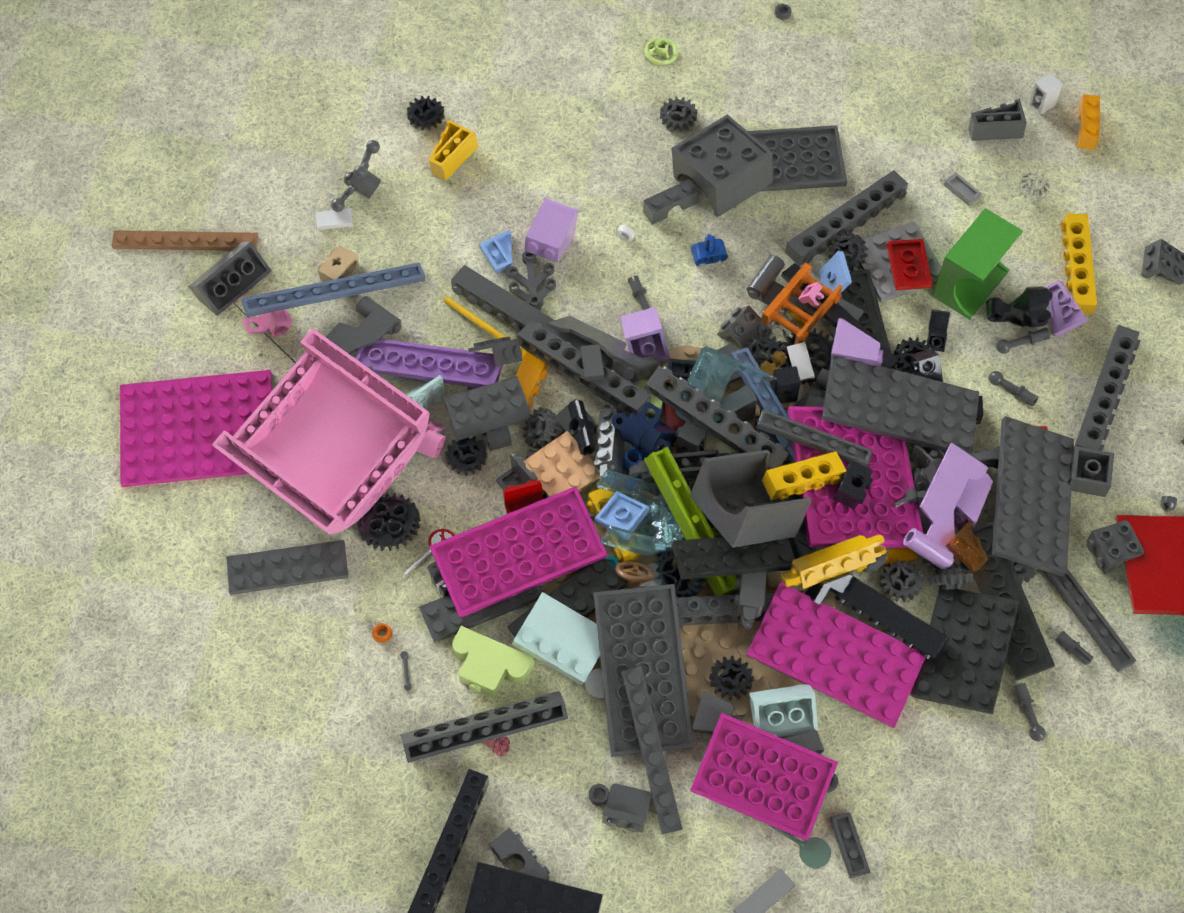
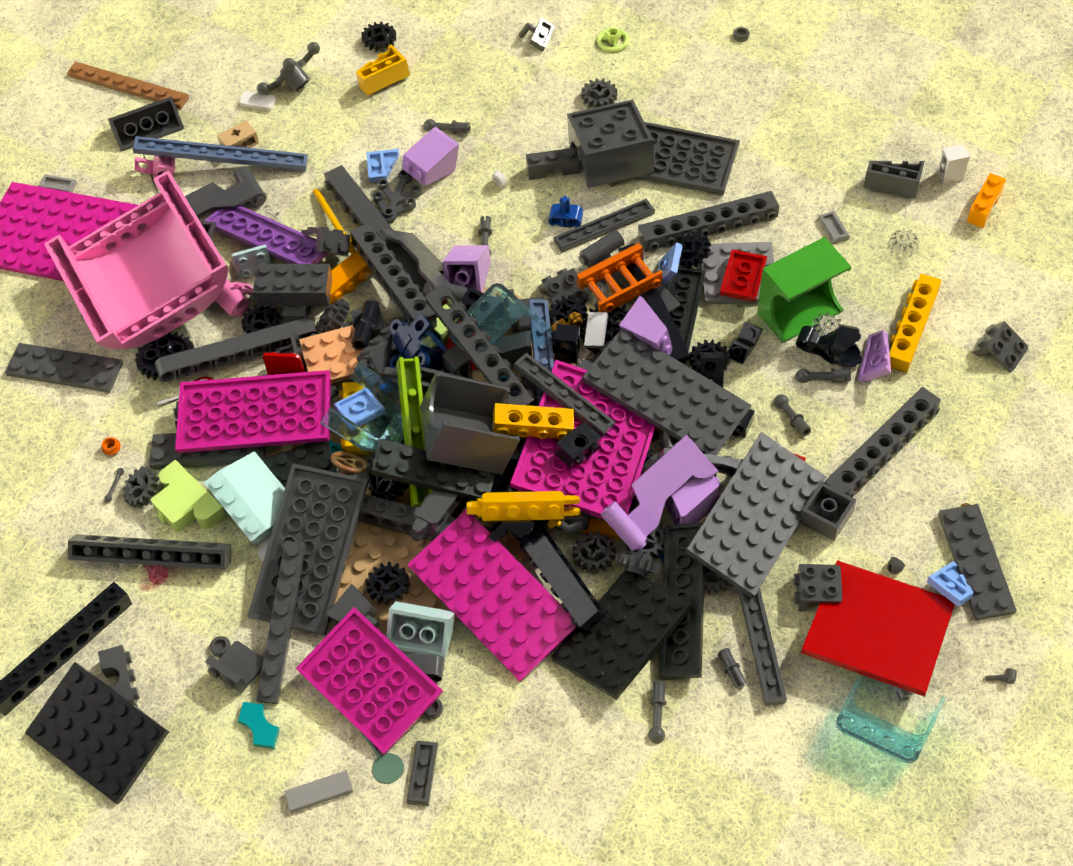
camera: 25 degrees right, 5 degrees down
(170, 371) = (58, 183): none -> light grey tile
(434, 656) = (140, 487): none -> dark grey gear
(458, 494) = (231, 350): none -> dark grey beam
(556, 189) = (455, 126): none -> dark grey pin
(589, 63) = (541, 33): none -> plate
(592, 362) = (399, 271): dark grey tile -> none
(683, 861) = (253, 717): none -> teal tile
(748, 251) = (604, 225): none -> dark grey tile
(810, 293) = (628, 270): bright pink tile -> none
(911, 497) = (632, 475): dark grey hand -> none
(968, 548) = (665, 539): clear orange wing -> none
(1006, 290) = (825, 324): none -> clear gear

